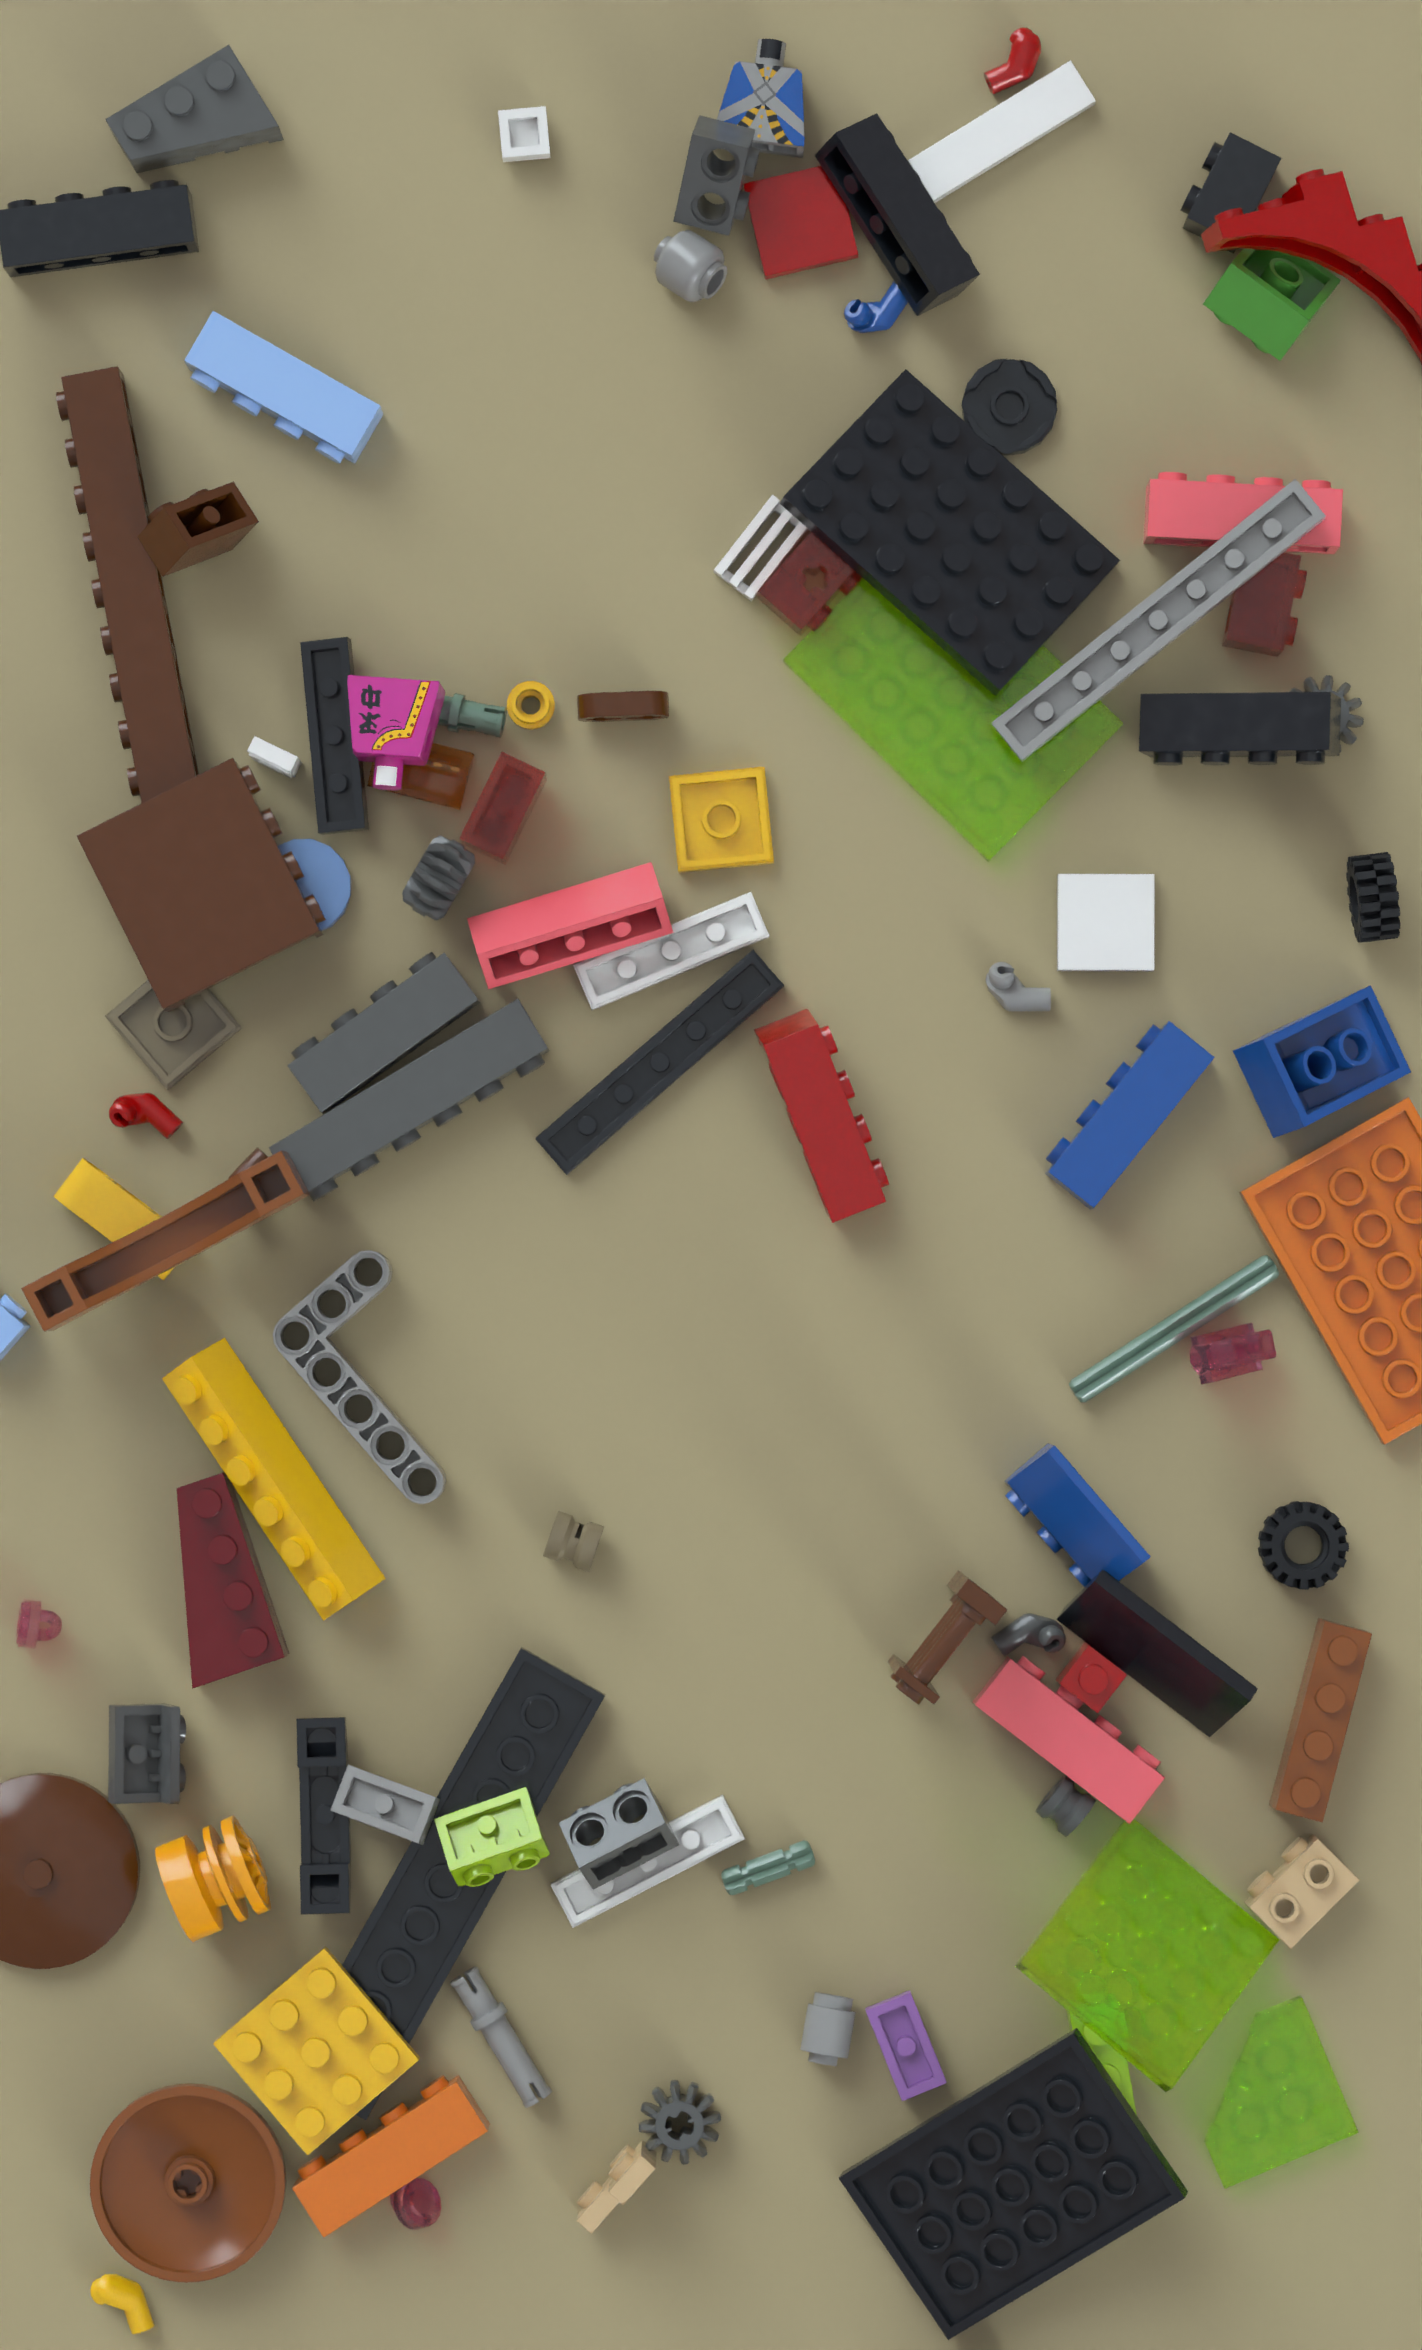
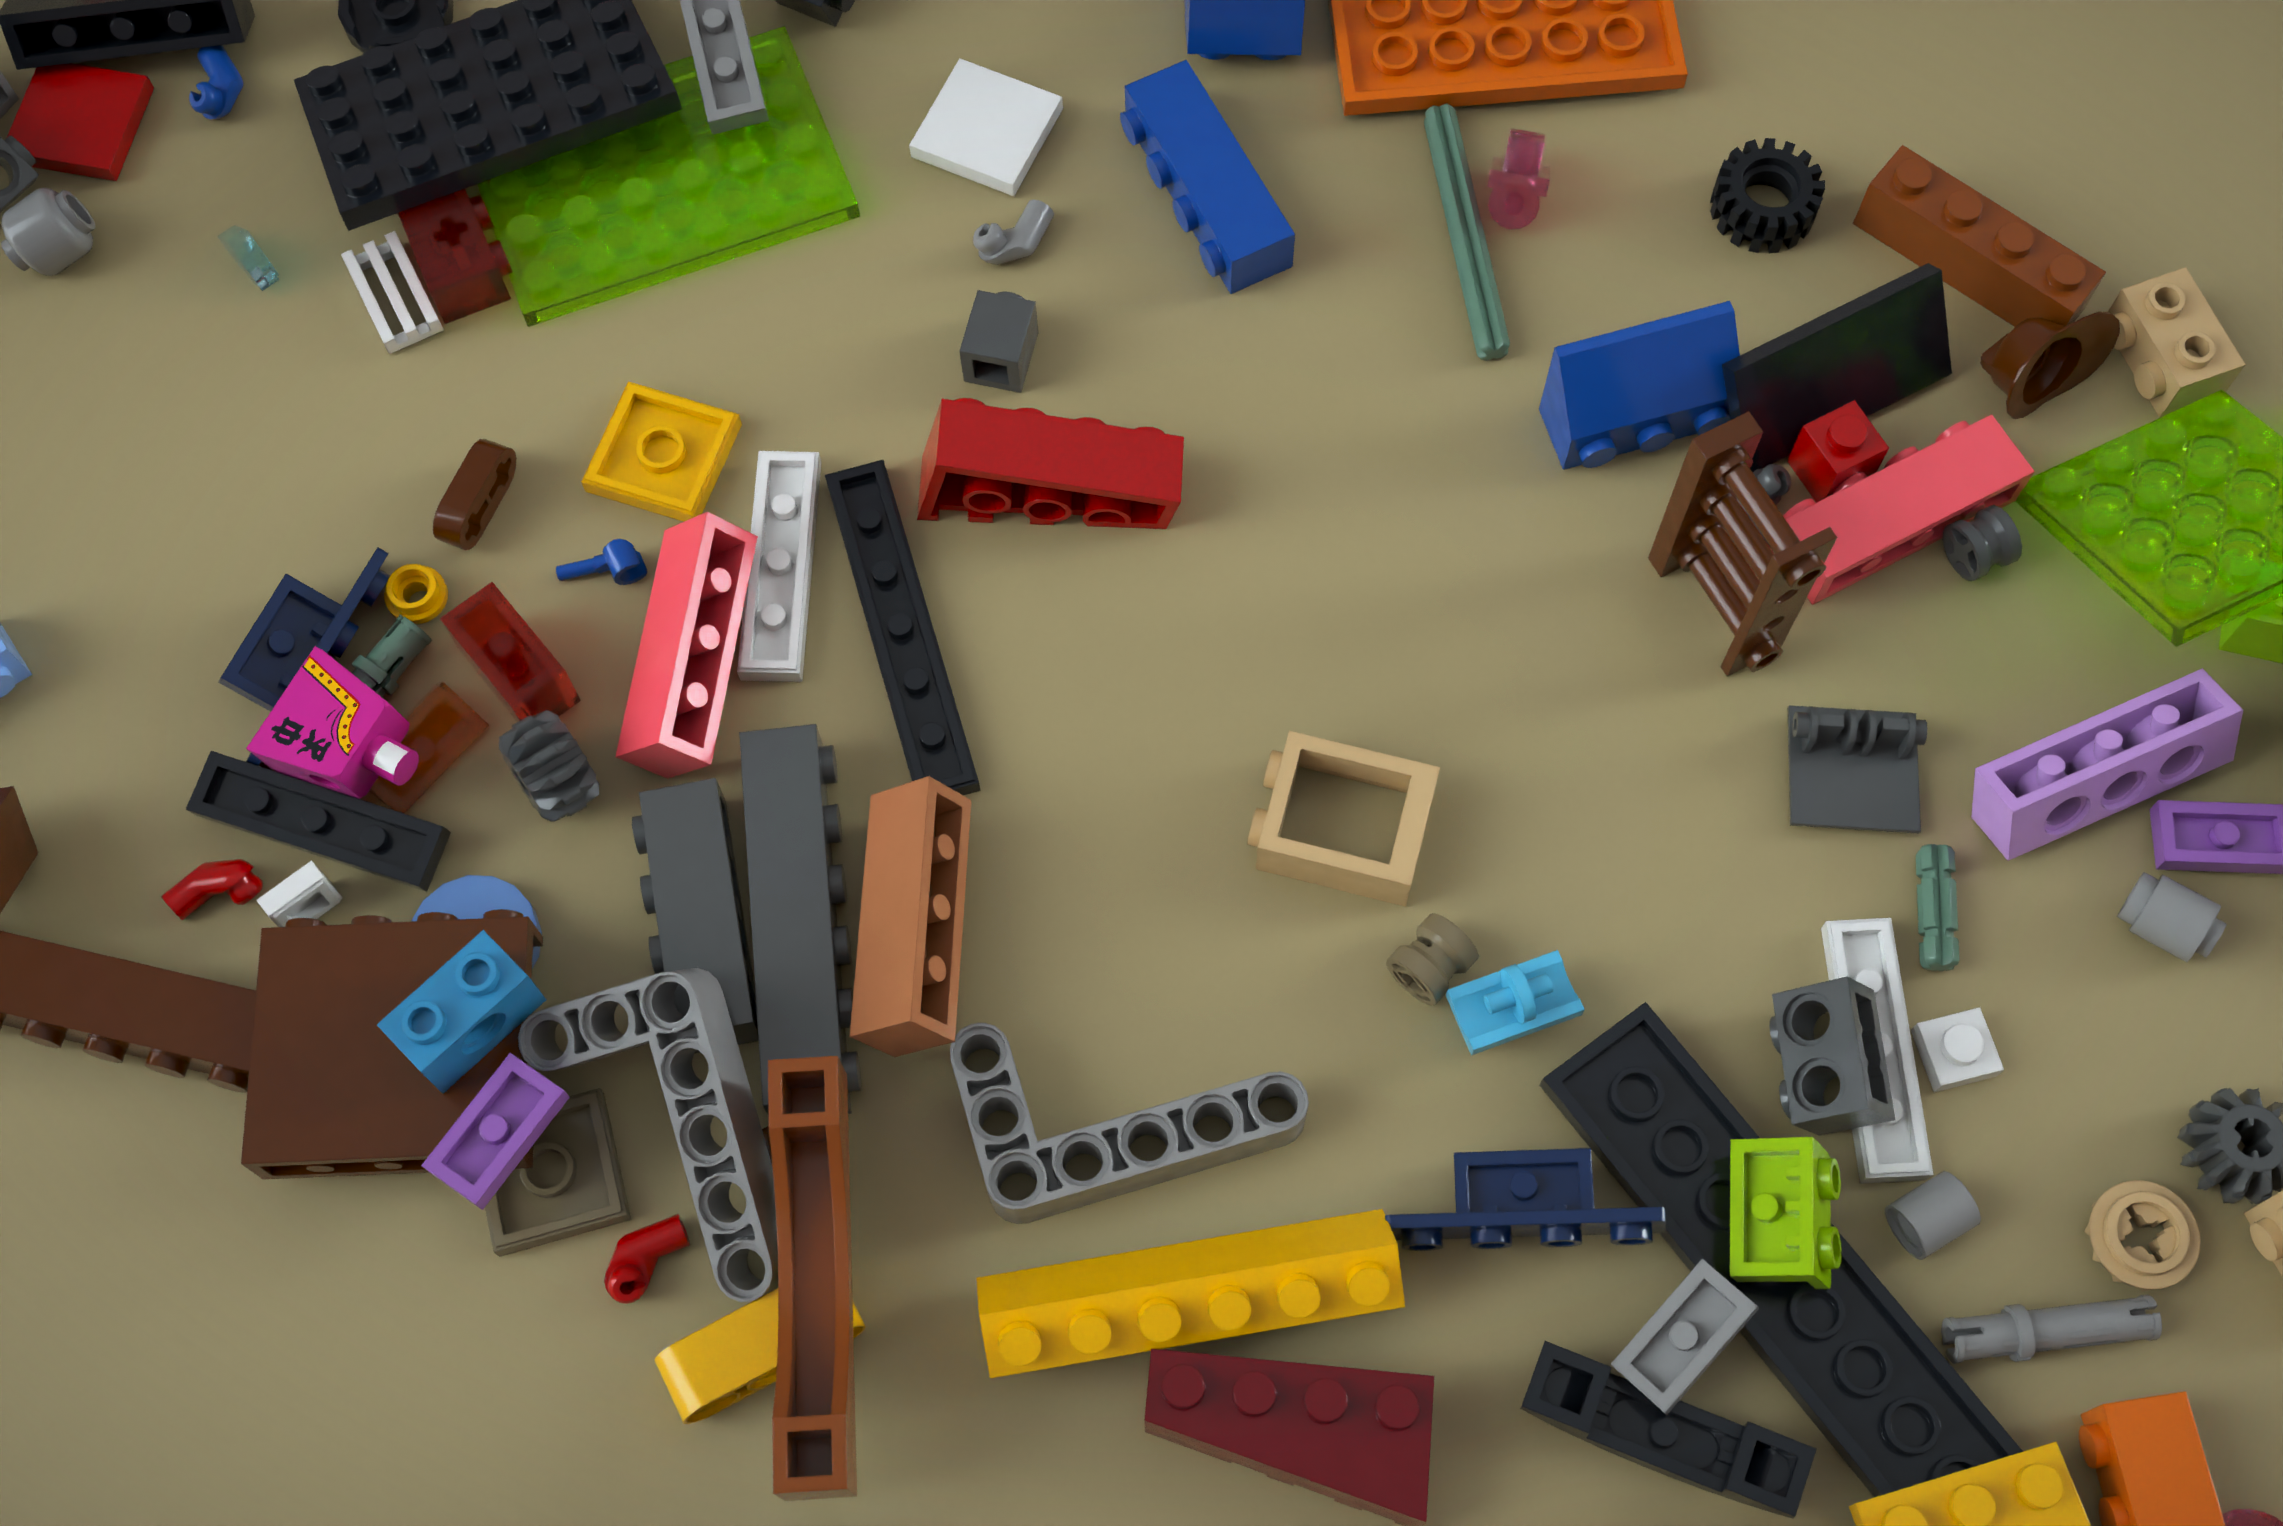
camera: 65 degrees left, 20 degrees down
(165, 993) = (495, 1131): none -> medium lavender plate
(229, 931) = (462, 1011): none -> dark azure brick
(249, 1101) = (690, 1105): none -> light grey beam
(264, 687) = (211, 879): none -> red arm
(434, 1668) = (1526, 1196): none -> dark blue bracket
(441, 1180) = (911, 918): none -> nougat brick
(450, 646) = (289, 630): none -> dark blue bracket
(543, 1936) = (1932, 1215): none -> light grey beam
(564, 1609) = (1514, 1002): none -> medium azure hips
(593, 2100) = (2148, 1204): none -> tan gear
(622, 838) = (618, 557): none -> blue hand
(660, 1488) = (1333, 868): none -> tan window
(670, 1915) = (1957, 1049): none -> white plate
(740, 424) = (249, 256): none -> clear light blue tile
(849, 1775) = (1854, 768): none -> dark grey hinge
(917, 1947) = (2105, 764): none -> lavender brick
(918, 1024) = (999, 340): none -> dark grey brick
(1240, 1796) = (2048, 358): none -> reddish brown piece

